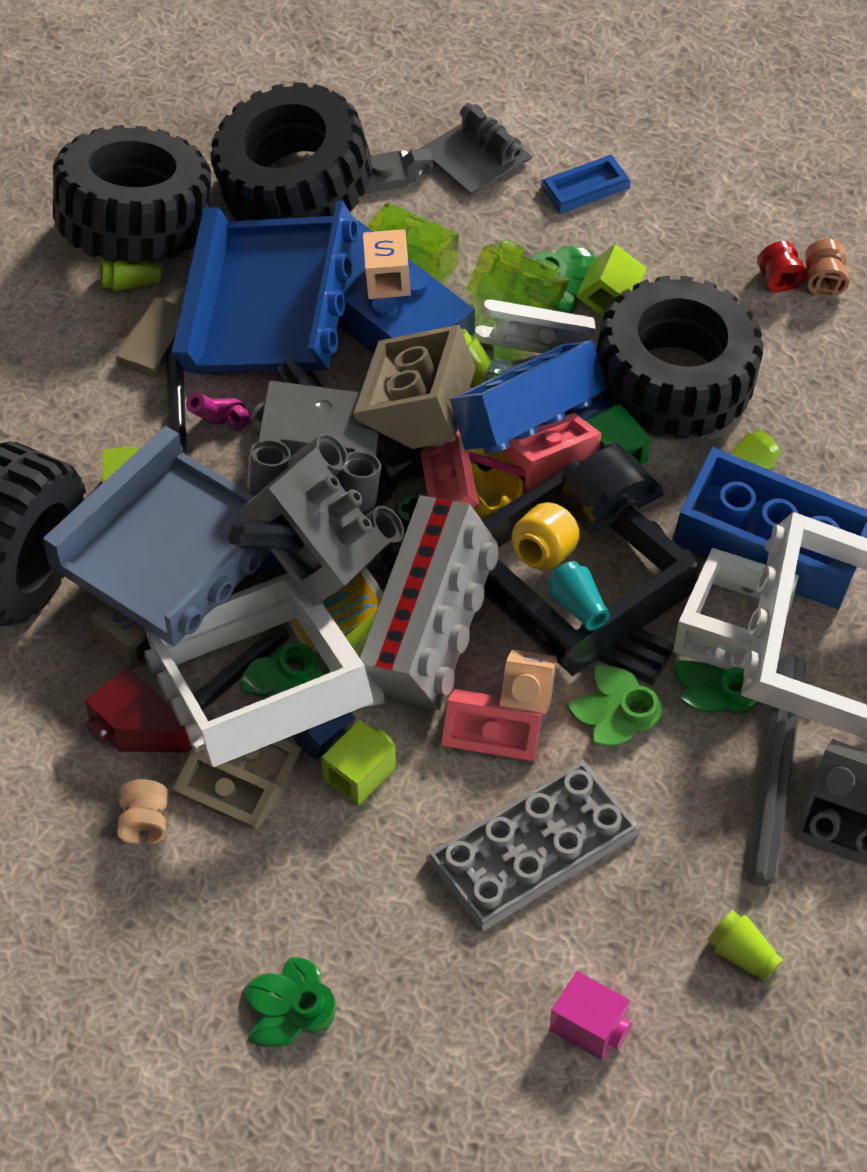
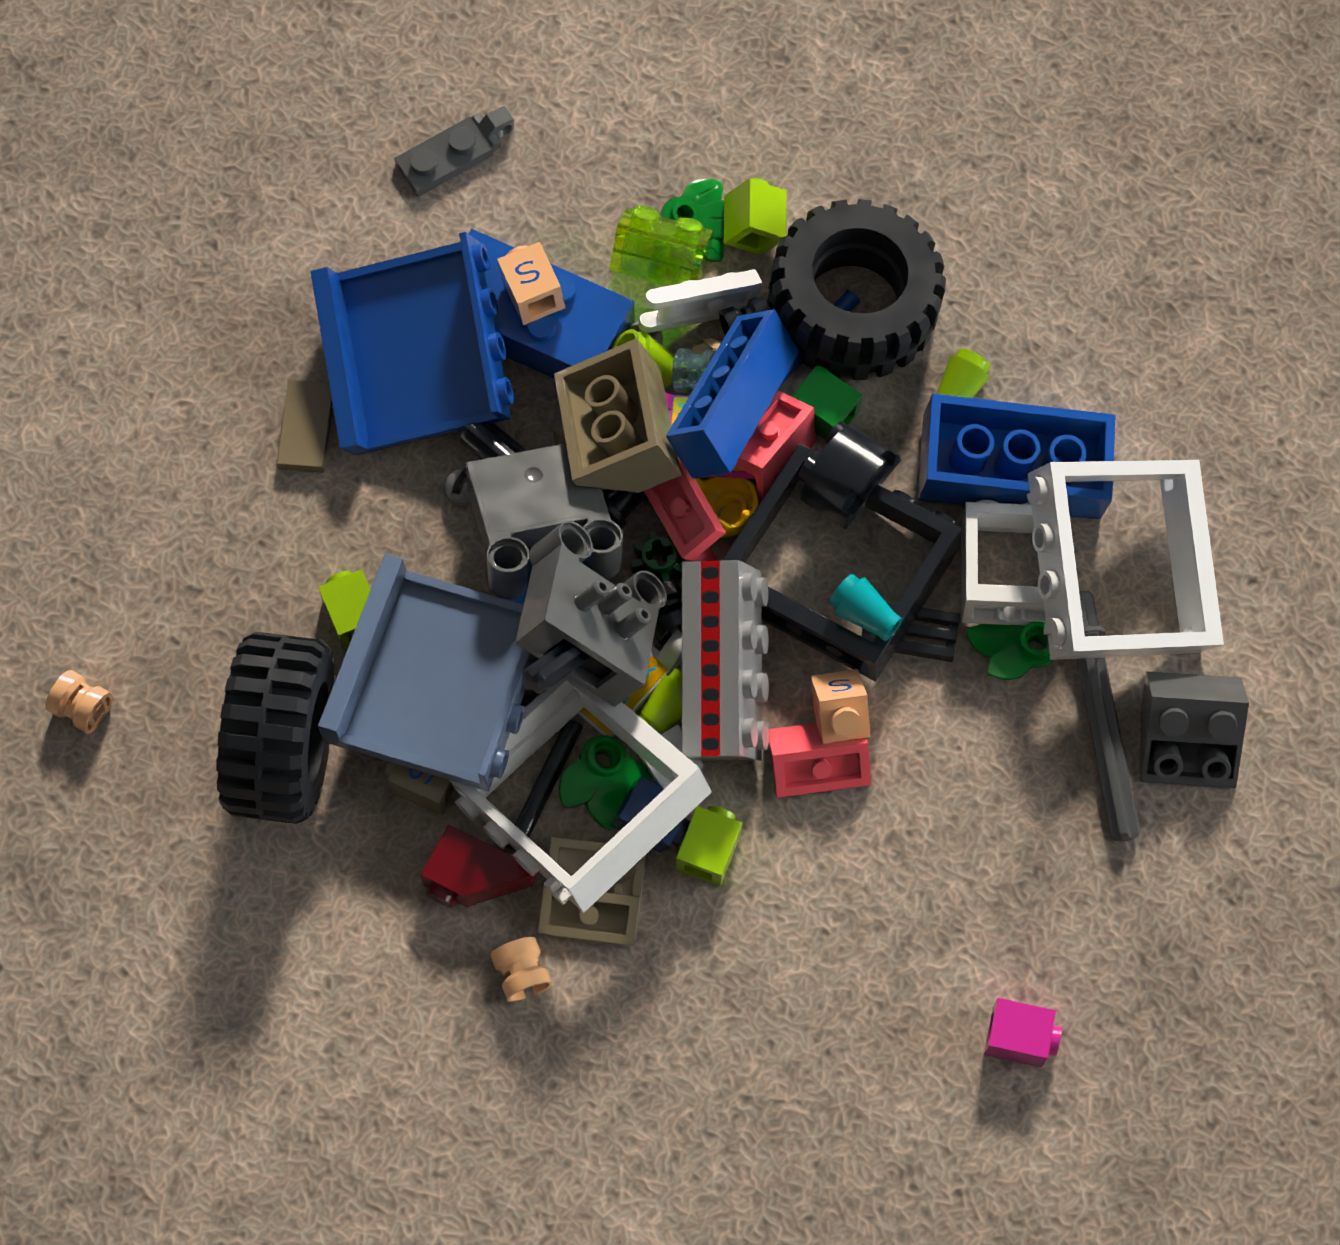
camera: 20 degrees left, 15 degrees up
(126, 276) = (245, 357): lime cone -> none
(130, 194) = (230, 313): black tyre -> none
(176, 399) = (362, 500): black bar -> none
(218, 410) = (410, 494): dark pink arm -> none
(282, 1001) = (730, 1117): green plate -> none
(288, 123) = (342, 130): black tyre -> none
(427, 242) = (527, 223): clear neon green brick -> none
(477, 150) = (551, 91): dark grey hinge -> none
(532, 845) = (901, 872): light grey tile -> none
(545, 536) = (806, 550): yellow head -> none
(585, 184) = (679, 96): blue tile -> none
(611, 706) = (920, 699): bright green plate -> none
(744, 946) = (1132, 911): lime cone -> none
(781, 266) = (917, 141): red wheel -> none
(827, 267) = (963, 130): nougat wheel -> none

